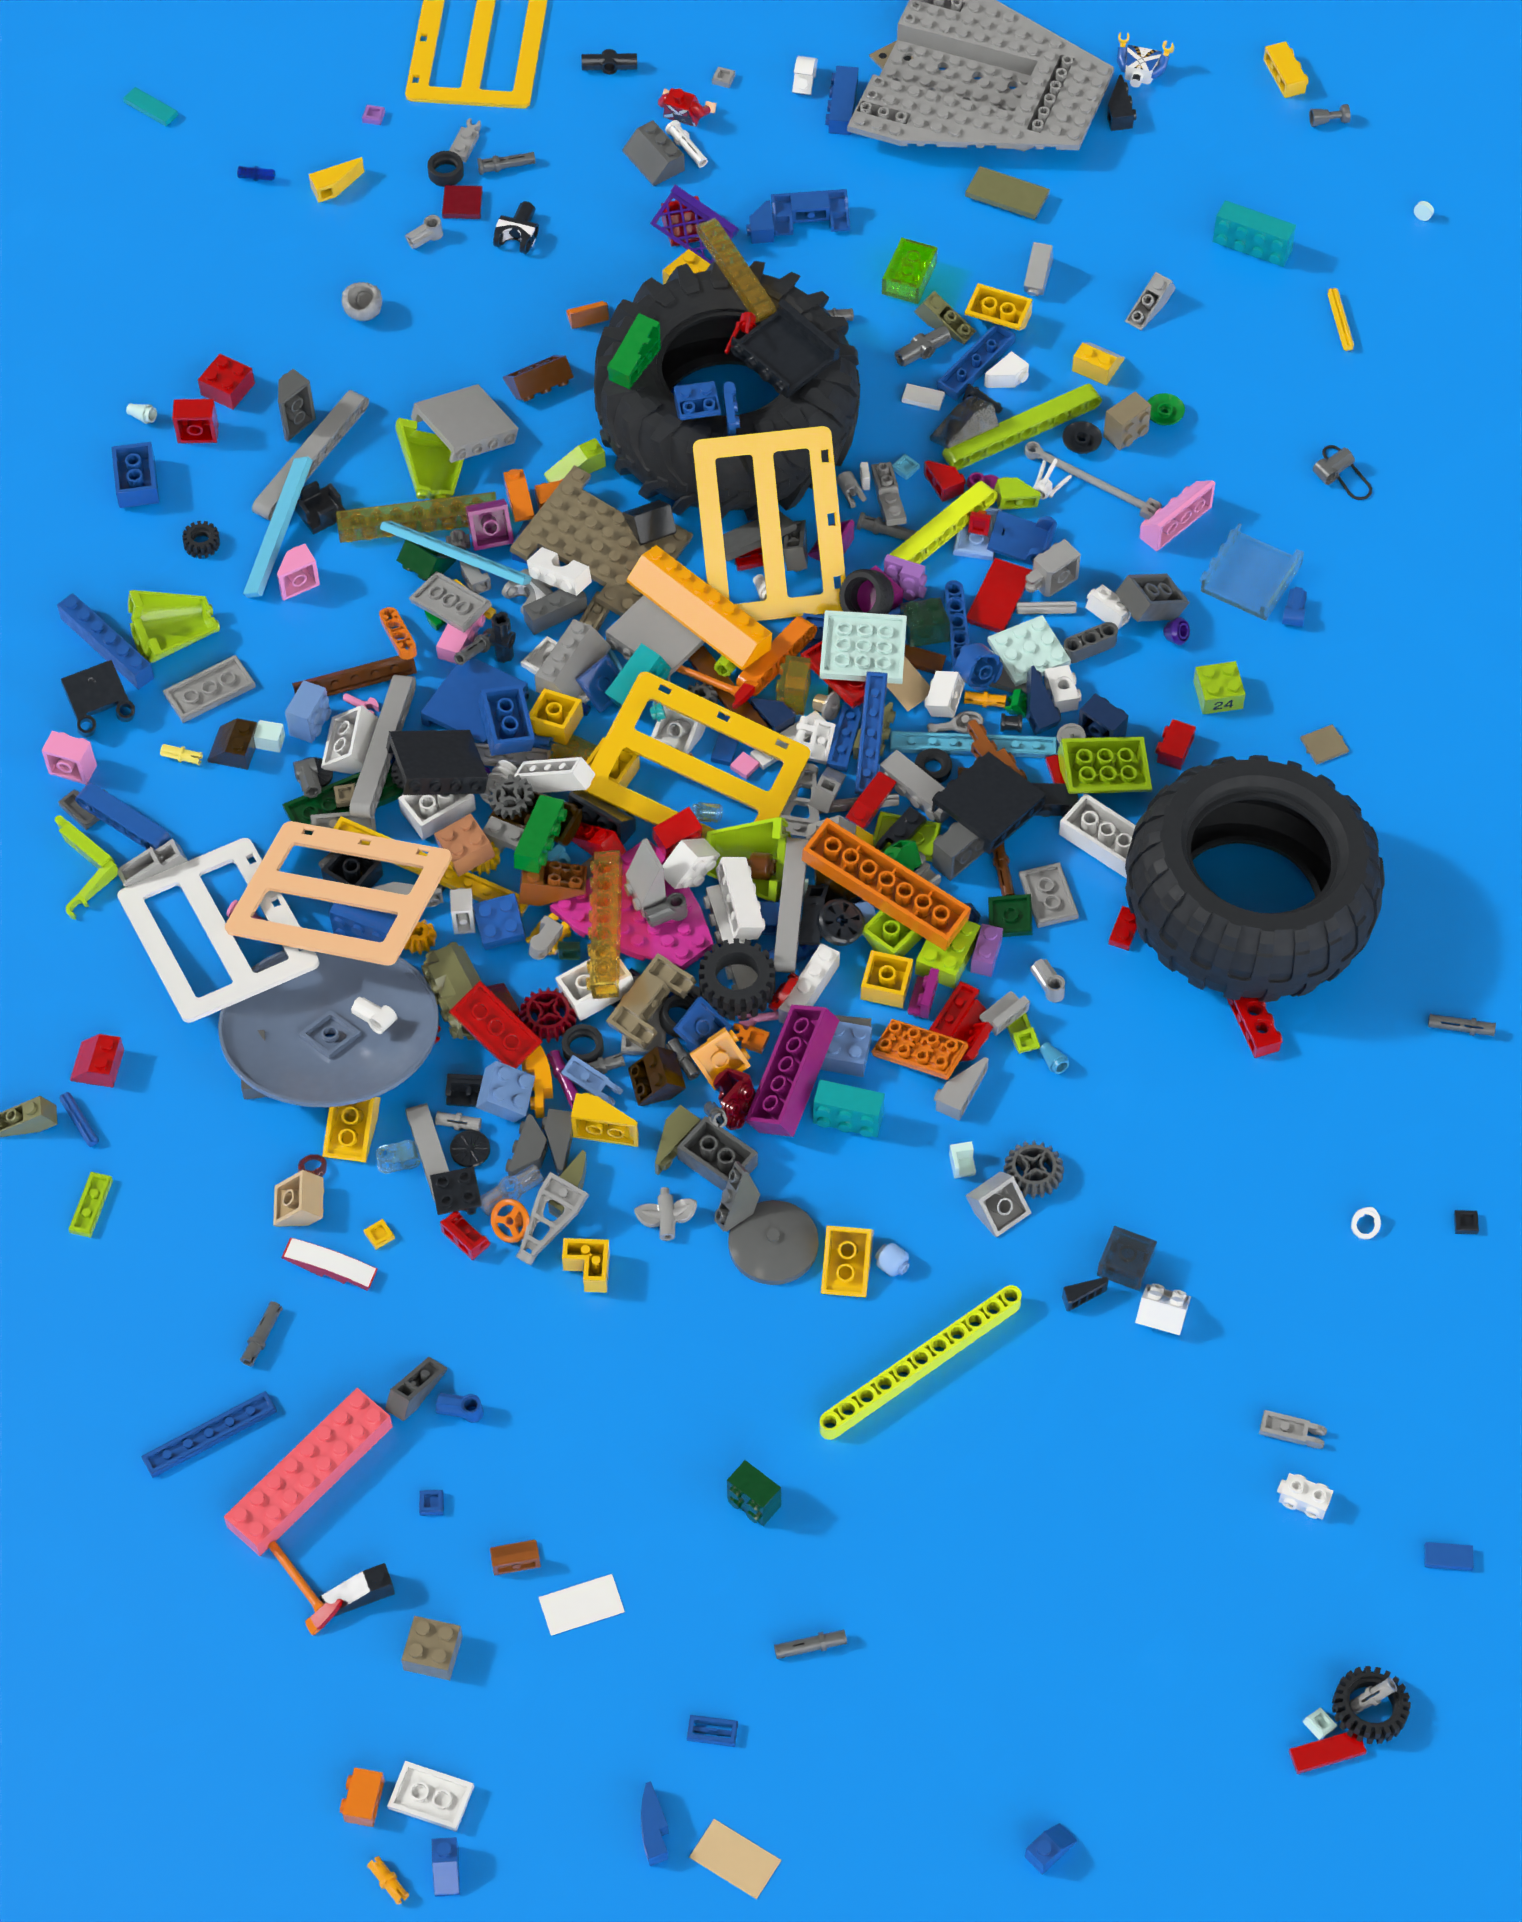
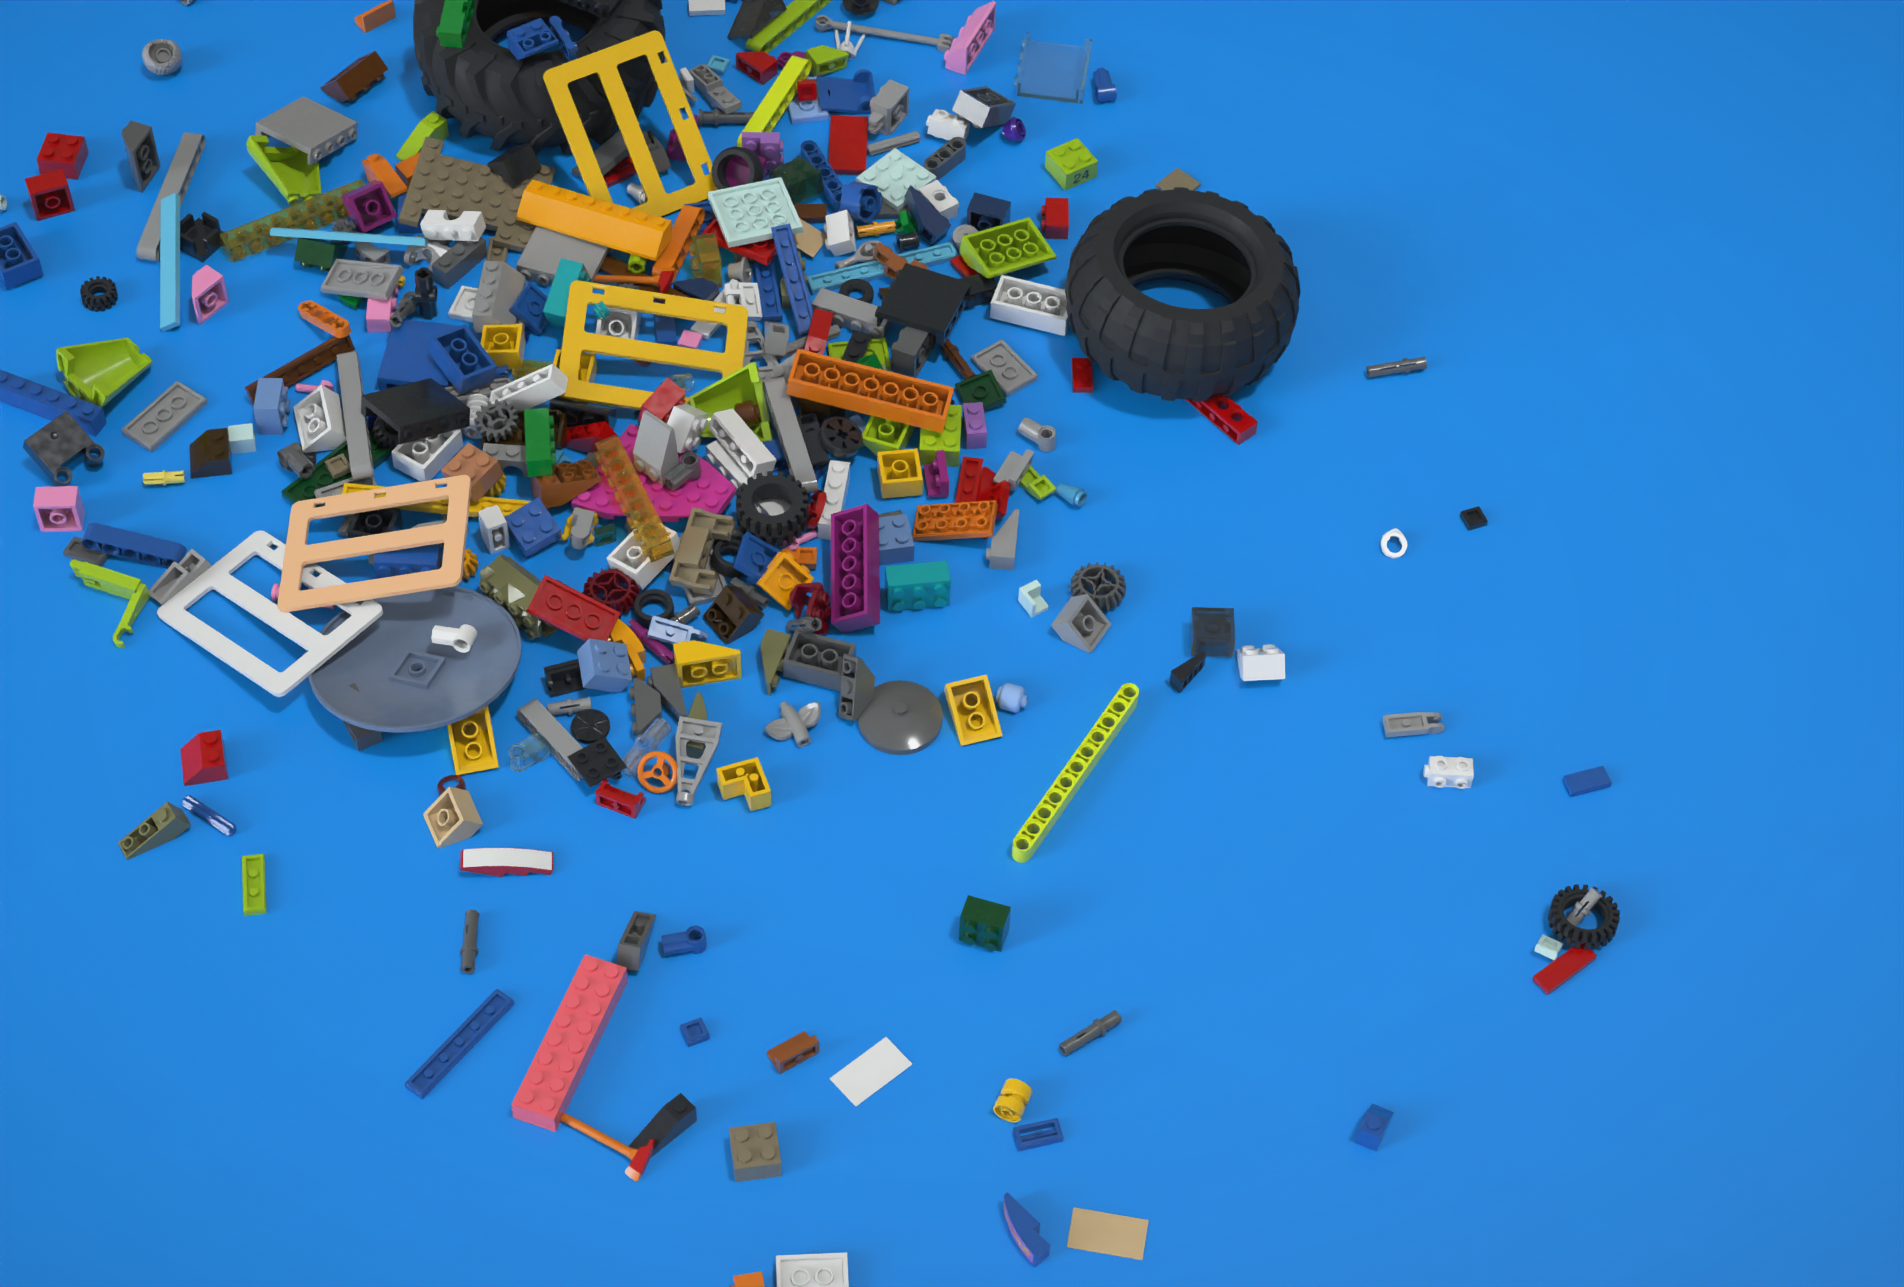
camera: 25 degrees left, 5 degrees down
(379, 1234) = (540, 823): yellow tile -> none
(704, 1684) = (1012, 1101): none -> yellow wheel

